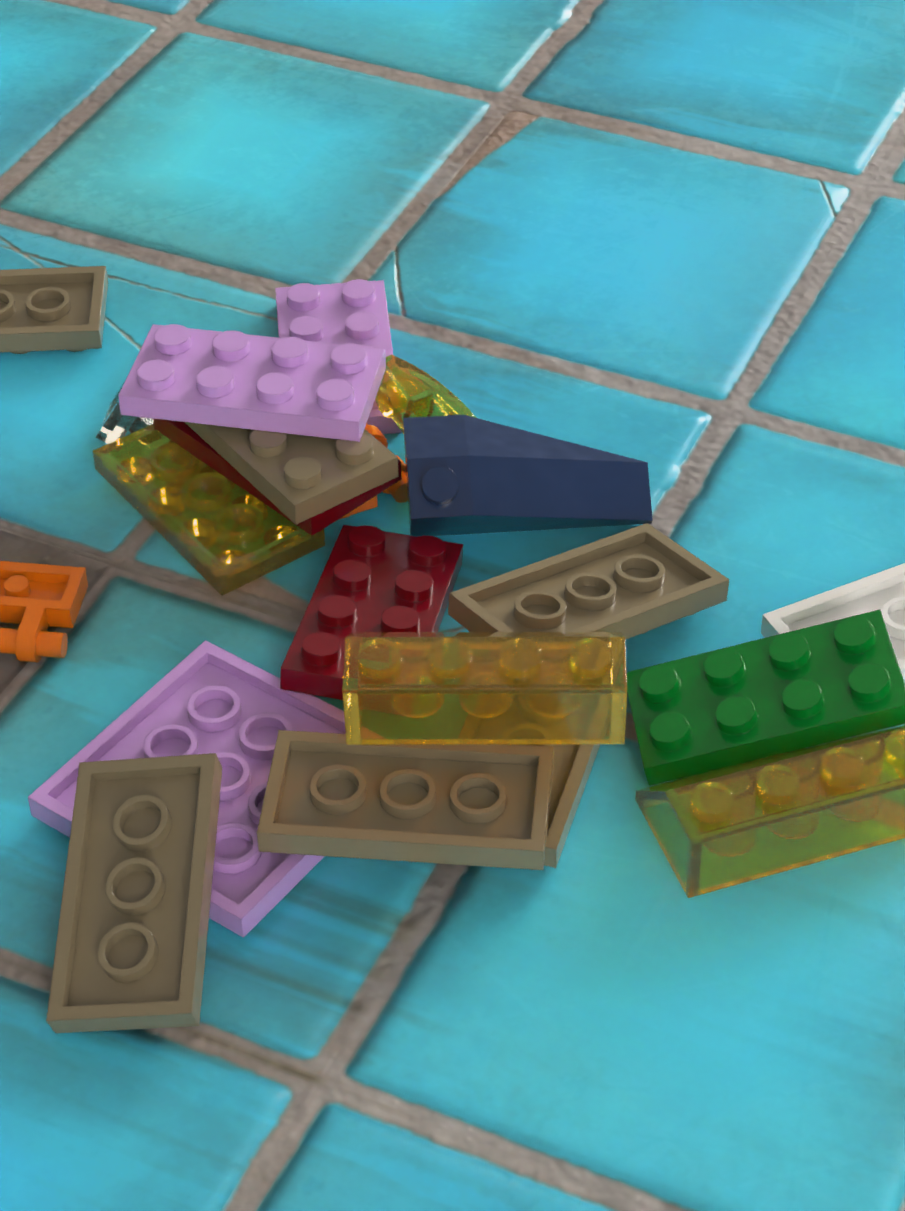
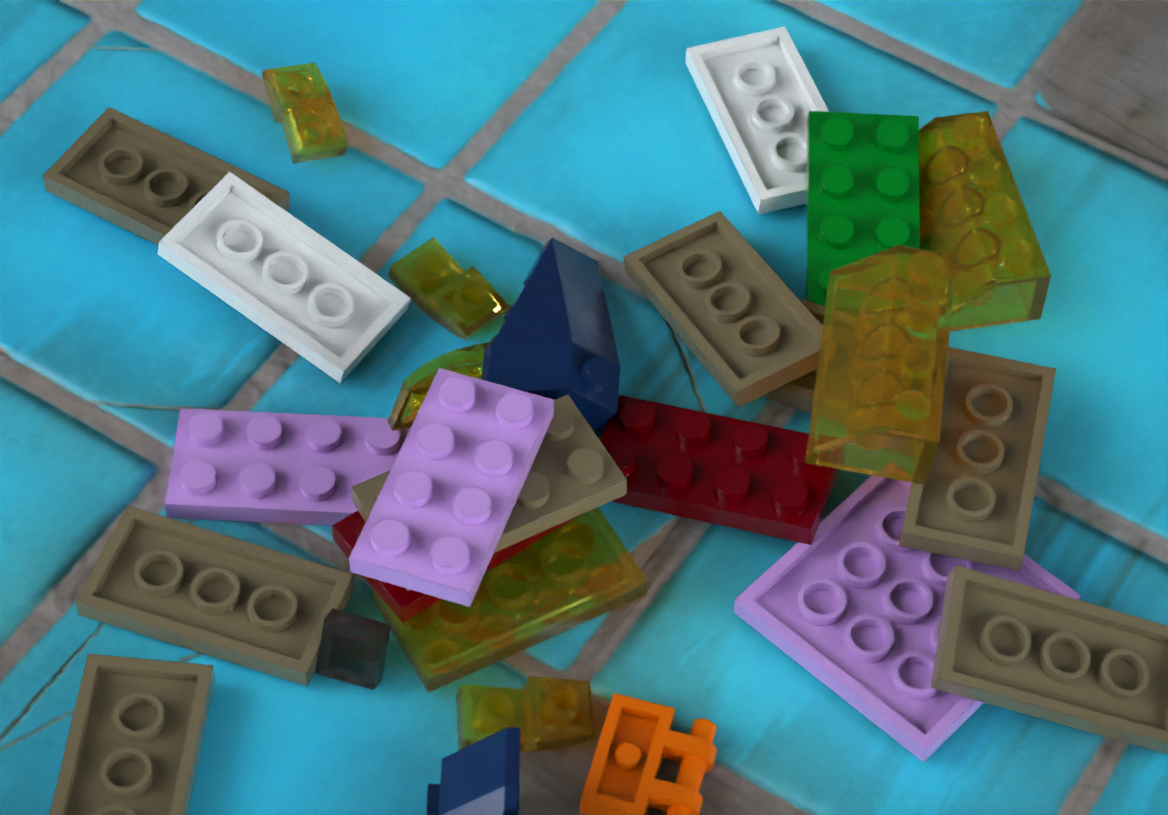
camera: 85 degrees left, 10 degrees up
(70, 523) = (547, 711): none -> clear yellow slope
(184, 292) = (214, 594): none -> dark tan plate
(539, 303) = (284, 276): none -> white plate
(584, 415) = (447, 293): none -> clear yellow slope
(638, 237) = (141, 176): none -> dark tan plate
(772, 291) = (306, 111): none -> clear yellow slope

